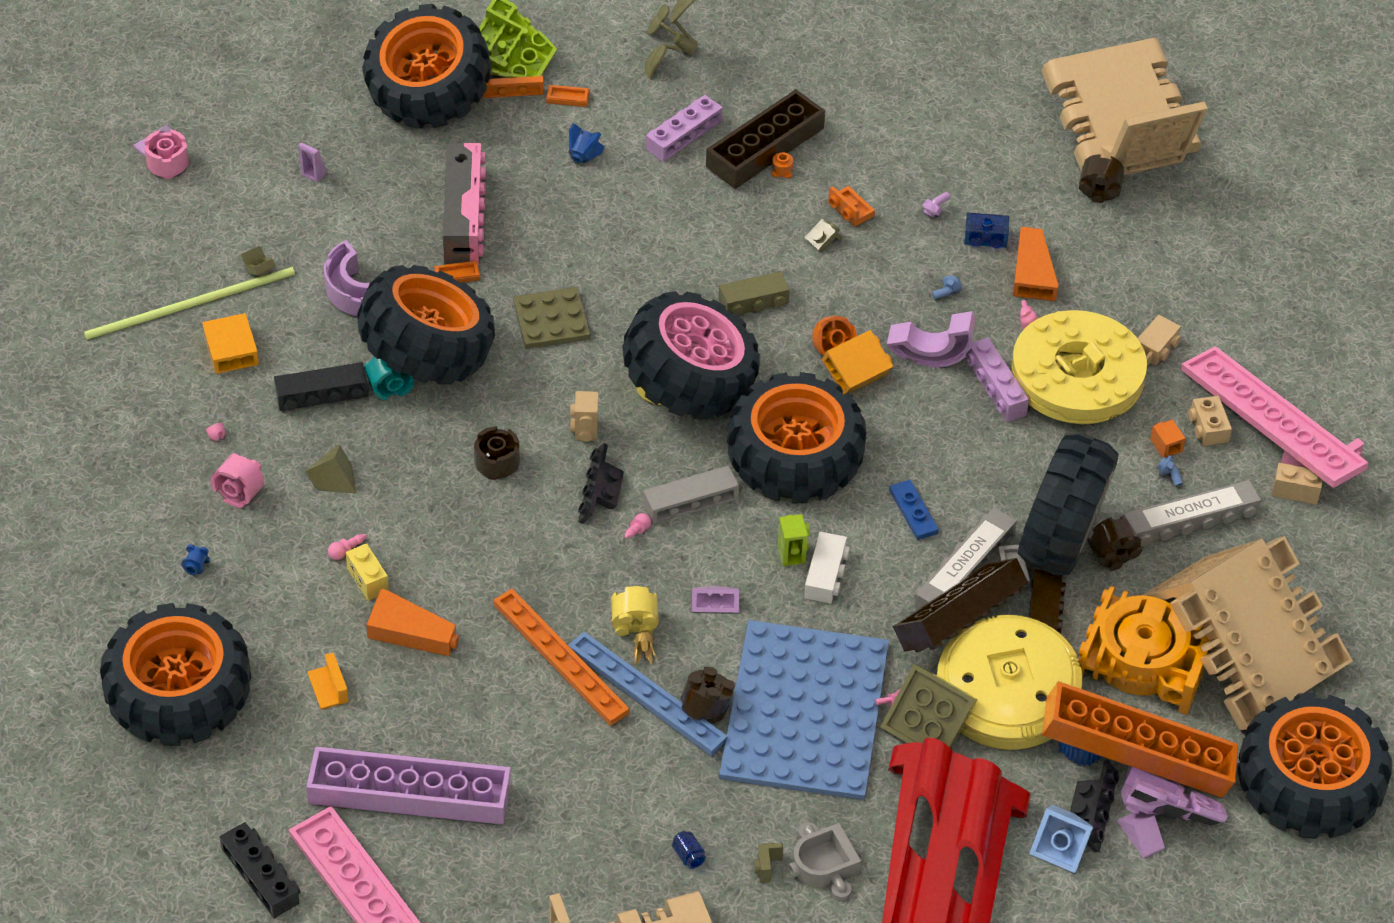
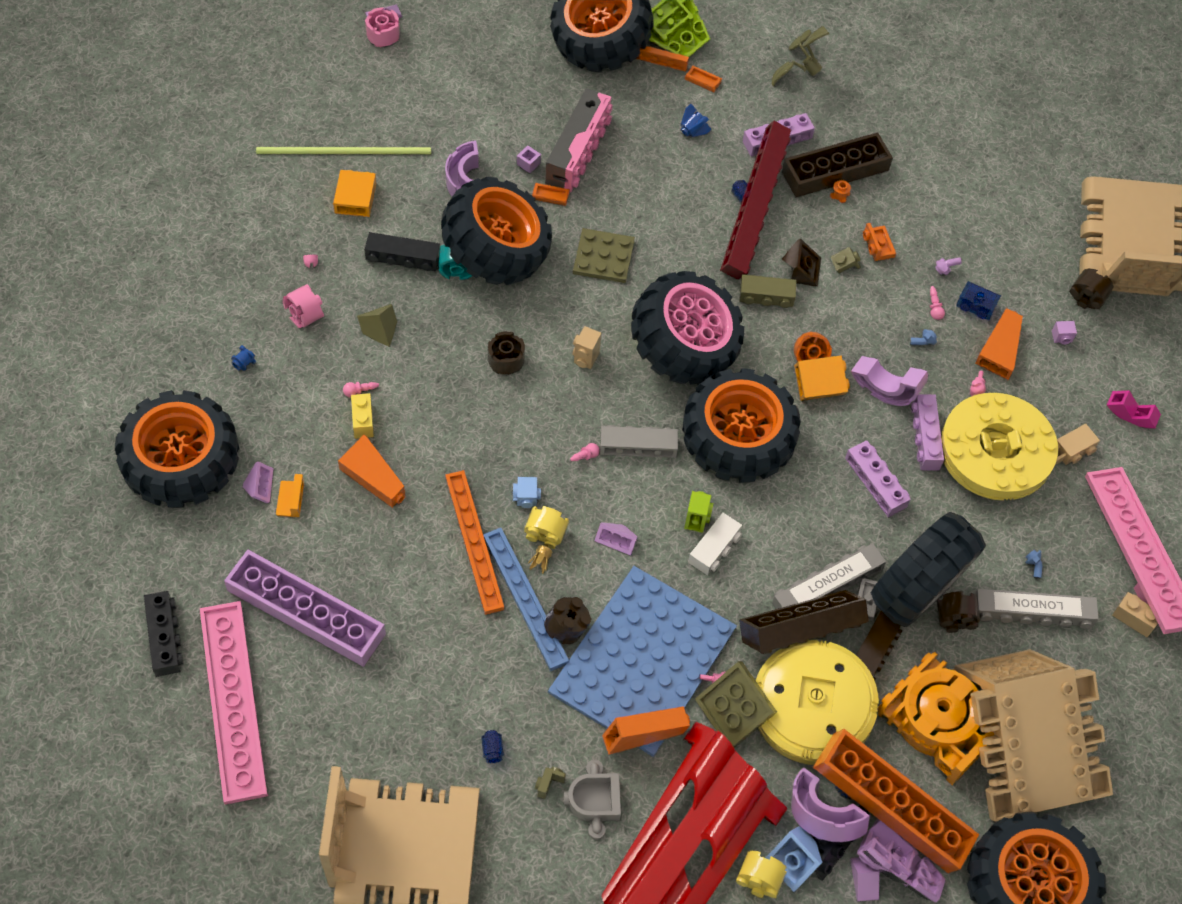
camera: 20 degrees right, 10 degrees up
(256, 262) = (406, 134): olive bracket -> none
(283, 681) = (259, 482): none -> lavender slope
(311, 163) = (482, 70): lavender slope -> none
(414, 243) = (528, 159): none -> lavender plate
(593, 586) = (526, 492): none -> light blue brick
(602, 484) = (575, 409): black bracket -> none
(675, 201) = (739, 189): none -> clear blue brick
(696, 203) = (756, 200): none -> dark red brick
(778, 253) = (804, 263): none -> dark brown slope
(844, 769) = (645, 728): none -> orange slope
(913, 509) = (810, 519): blue plate -> none
(946, 255) = (937, 311): none -> bright pink bar
(966, 444) = (877, 478): none -> lavender brick
(1036, 863) = (761, 874): none -> light yellow brick
(1073, 784) = (823, 820): none -> lavender brick
(1092, 232) = (1064, 332): none -> lavender plate
(1167, 438) = (1045, 534): orange brick -> none
(1192, 287) = (1125, 407): none -> dark pink brick
(1210, 421) = (1088, 531): tan brick -> none

